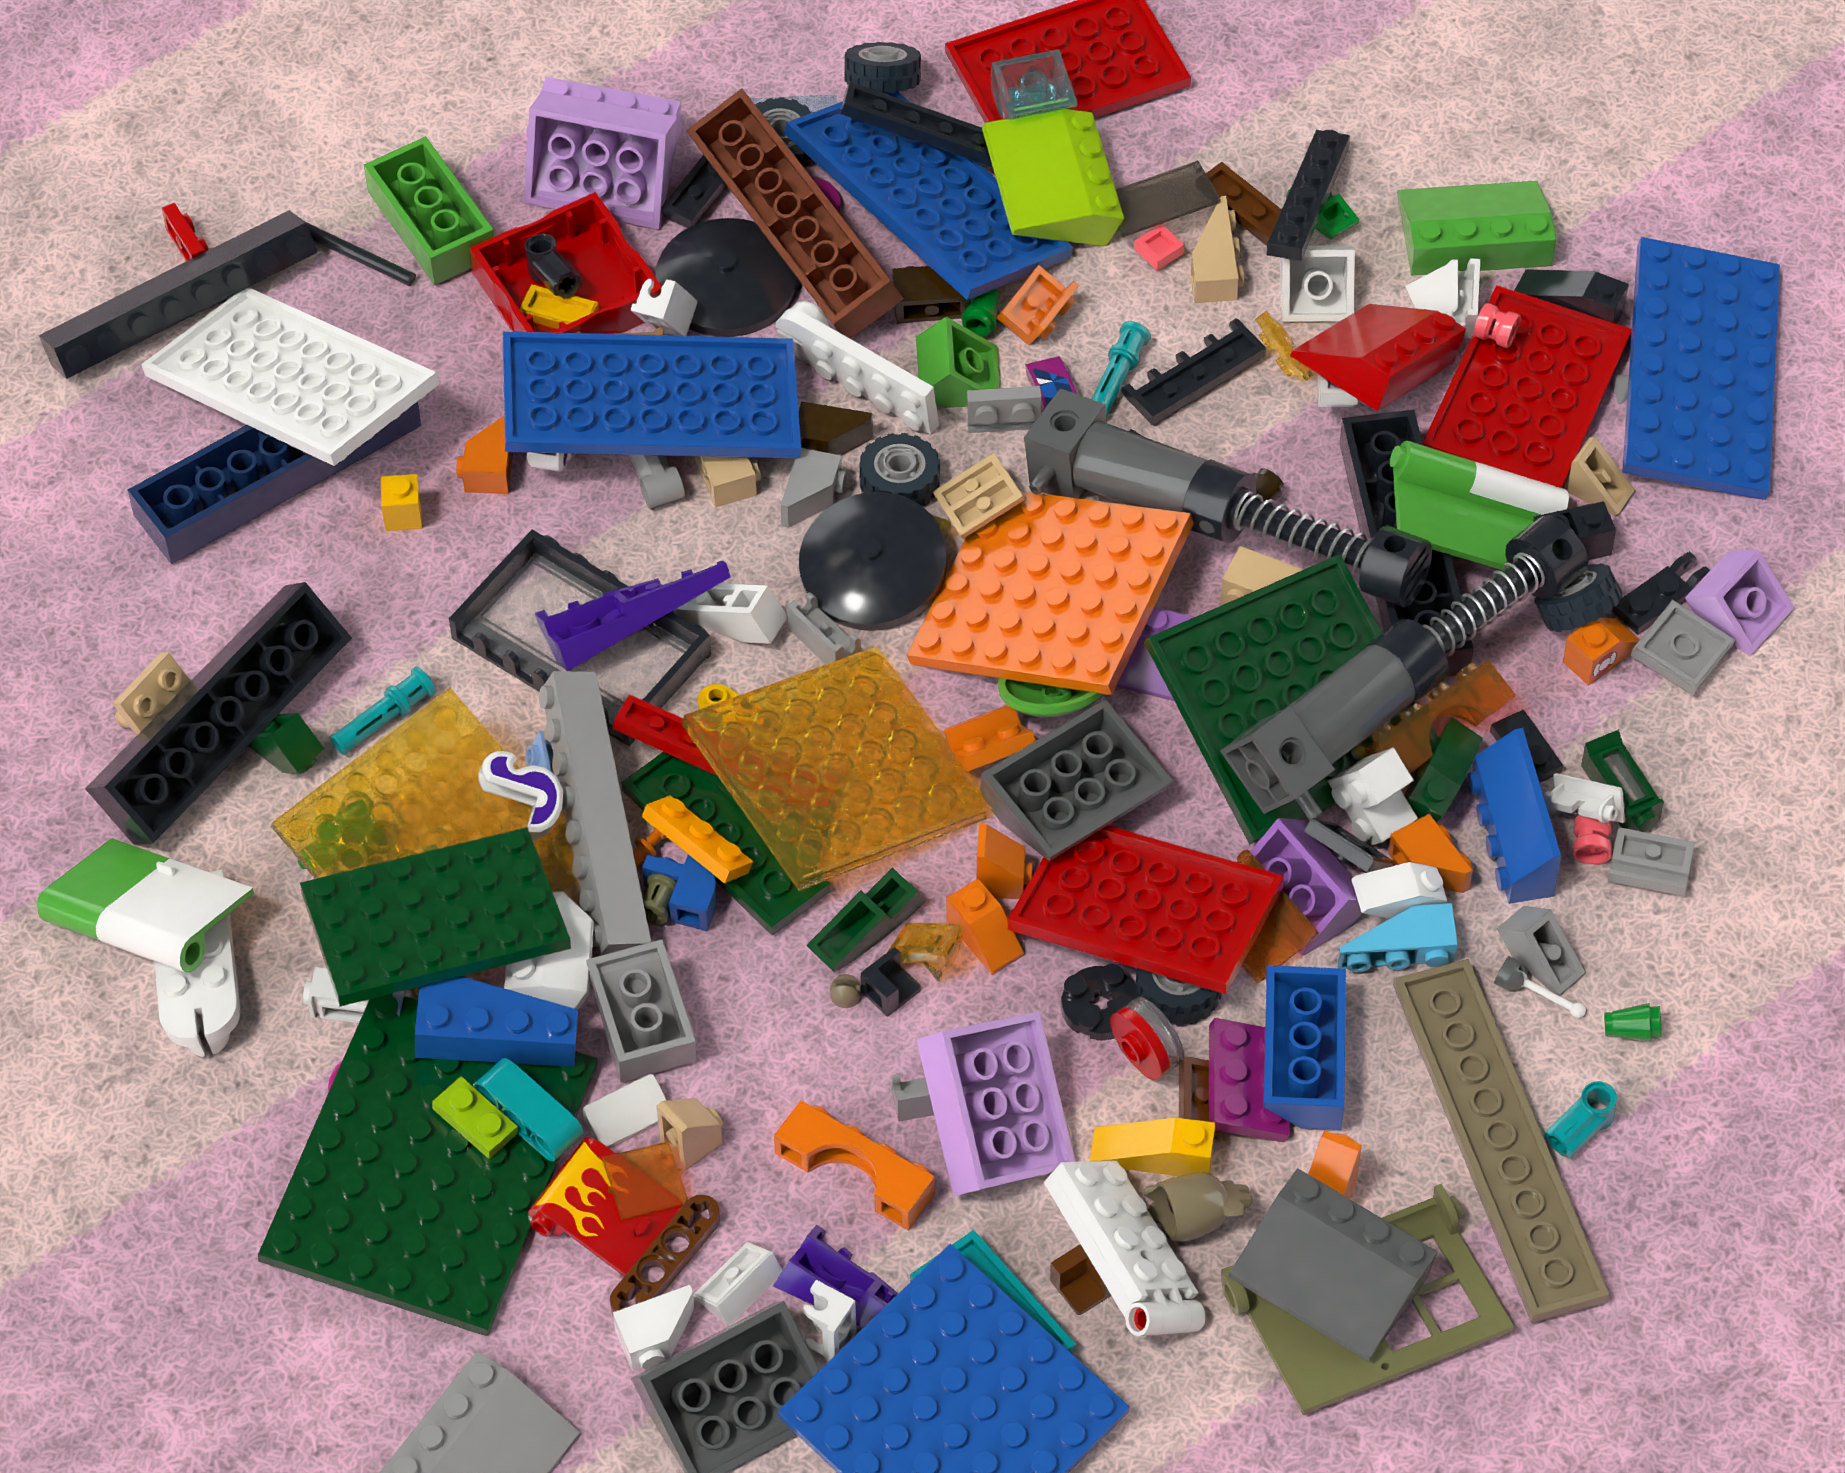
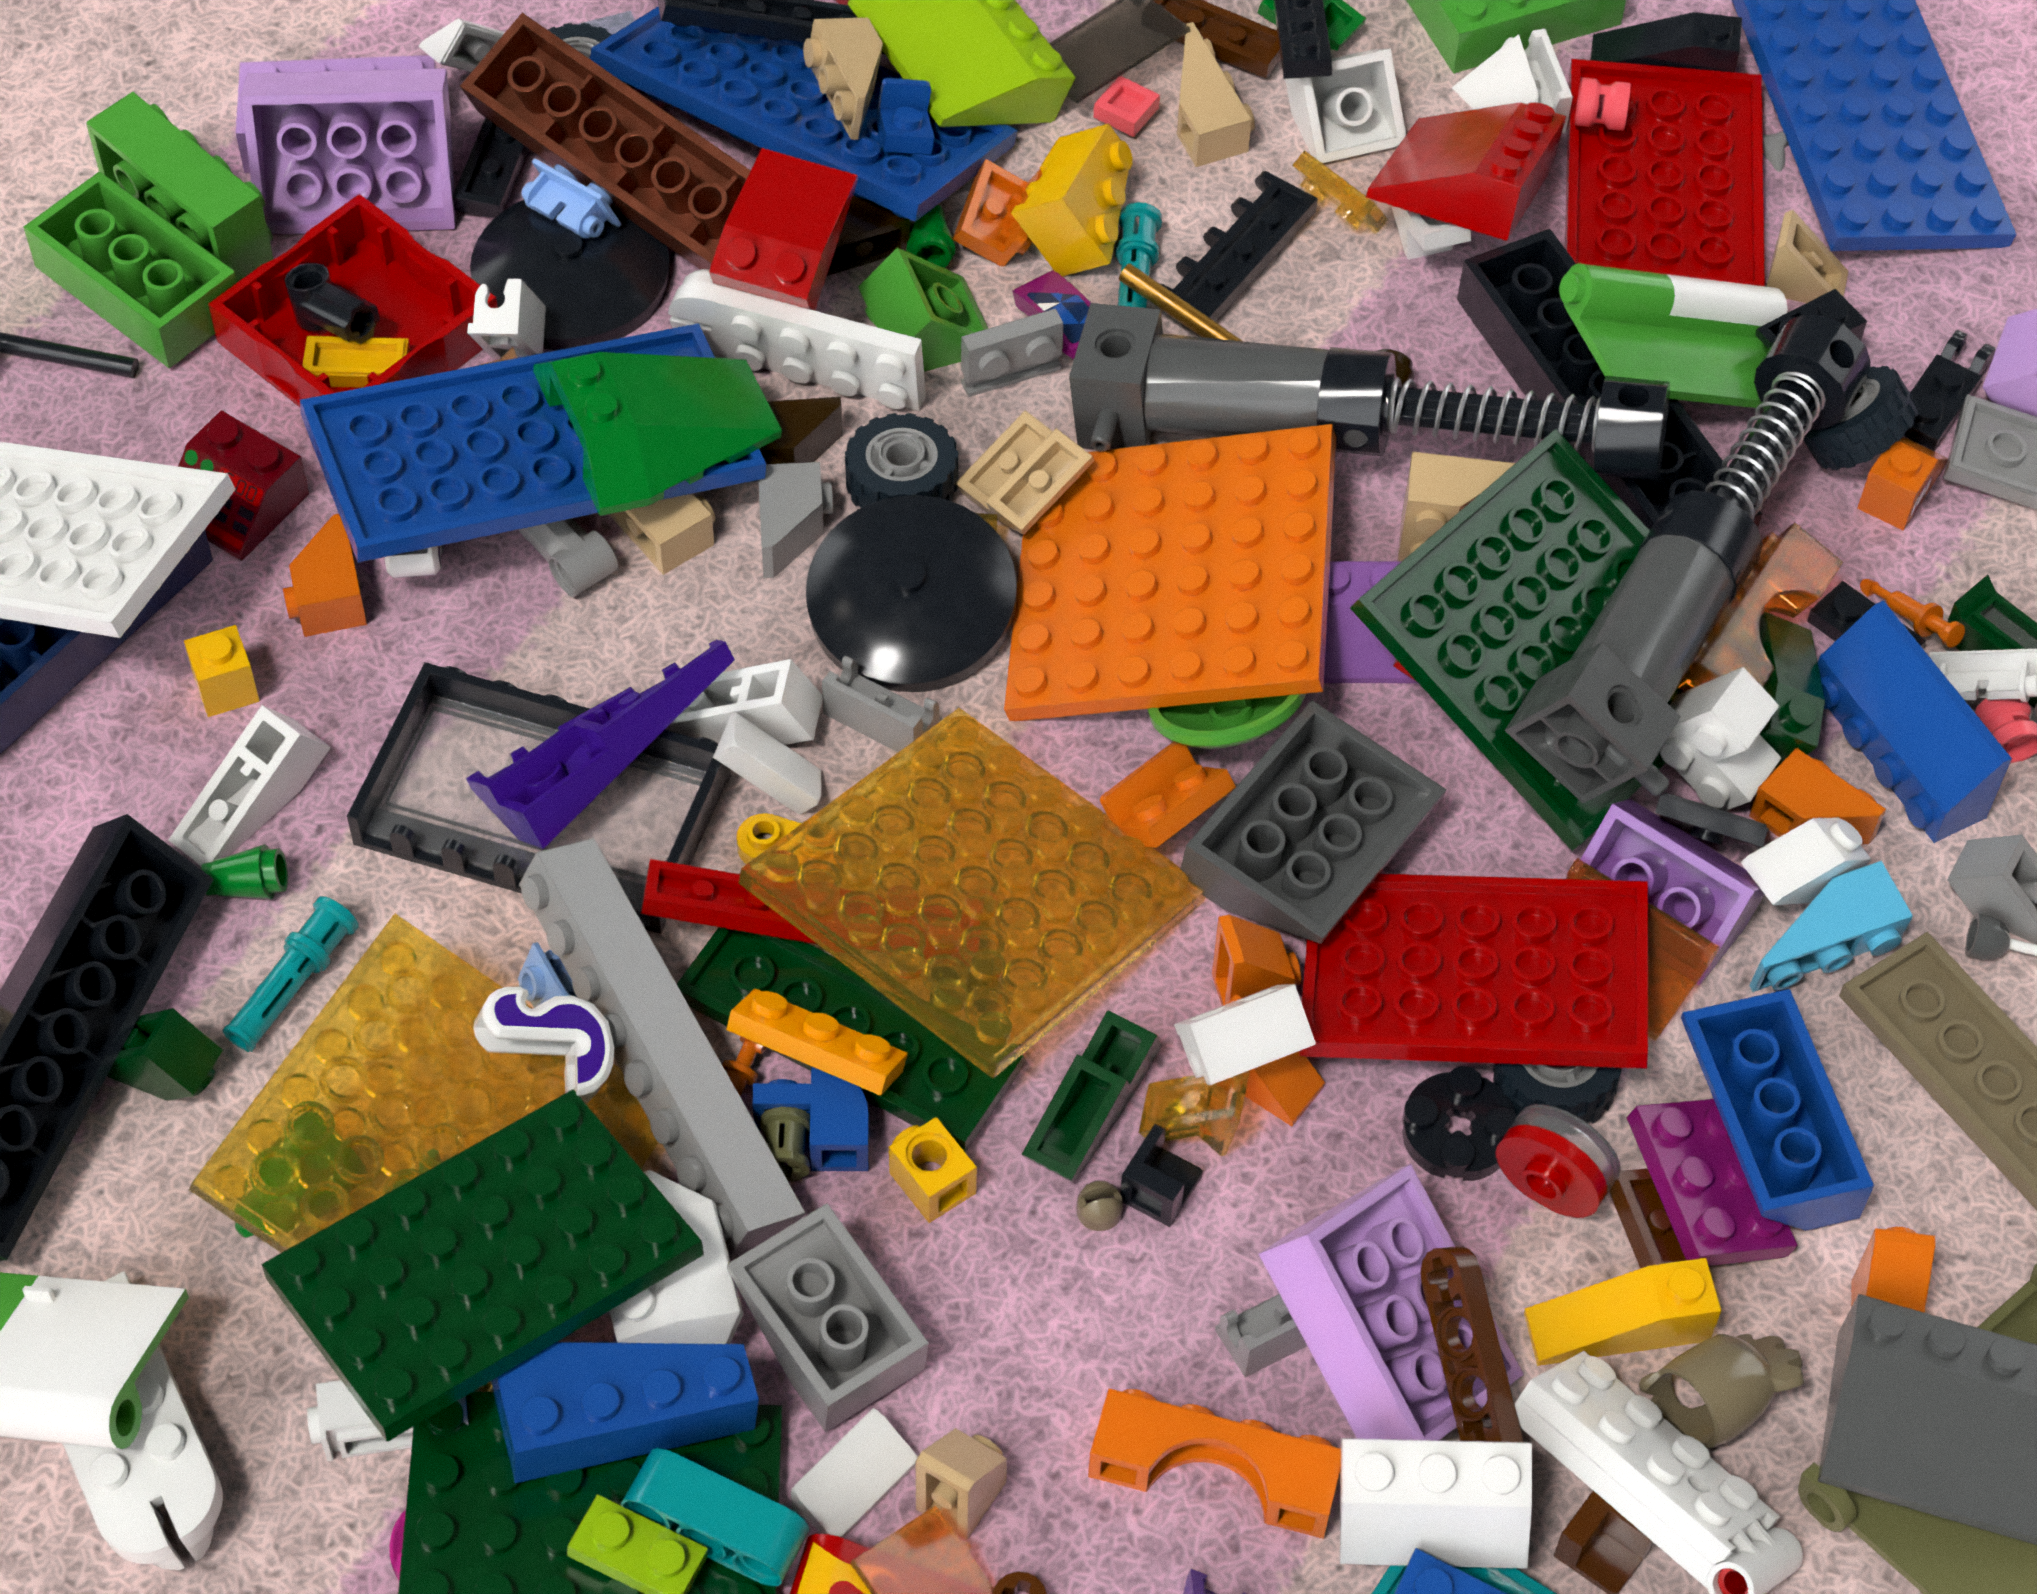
camera: 20 degrees left, 0 degrees up
(377, 640) = (249, 873): none -> green cone
(396, 583) = (250, 786): none -> white slope
(463, 374) = (265, 477): none -> dark red slope
(478, 159) = (182, 182): none -> bright green brick
(699, 98) = (461, 44): none -> white slope
(734, 652) = (769, 765): none -> white slope
(735, 400) = (656, 419): none -> green wedge
(743, 237) = (584, 206): none -> light blue hinge
(749, 952) = (934, 1190): none -> yellow brick
(865, 287) = (784, 229): none -> red slope
(962, 176) = (846, 64): none -> tan slope
(969, 903) = (1245, 1033): none -> white hinge
(978, 1217) = (1440, 1496): none -> white slope
(988, 222) = (904, 116): none -> blue bracket
(1032, 1144) = (1484, 1355): none -> reddish brown beam
(1091, 309) = (1078, 200): none -> yellow wedge
(1134, 406) = (1173, 304): none -> pearl gold bar
(1567, 749) = (1926, 618): none -> orange piece

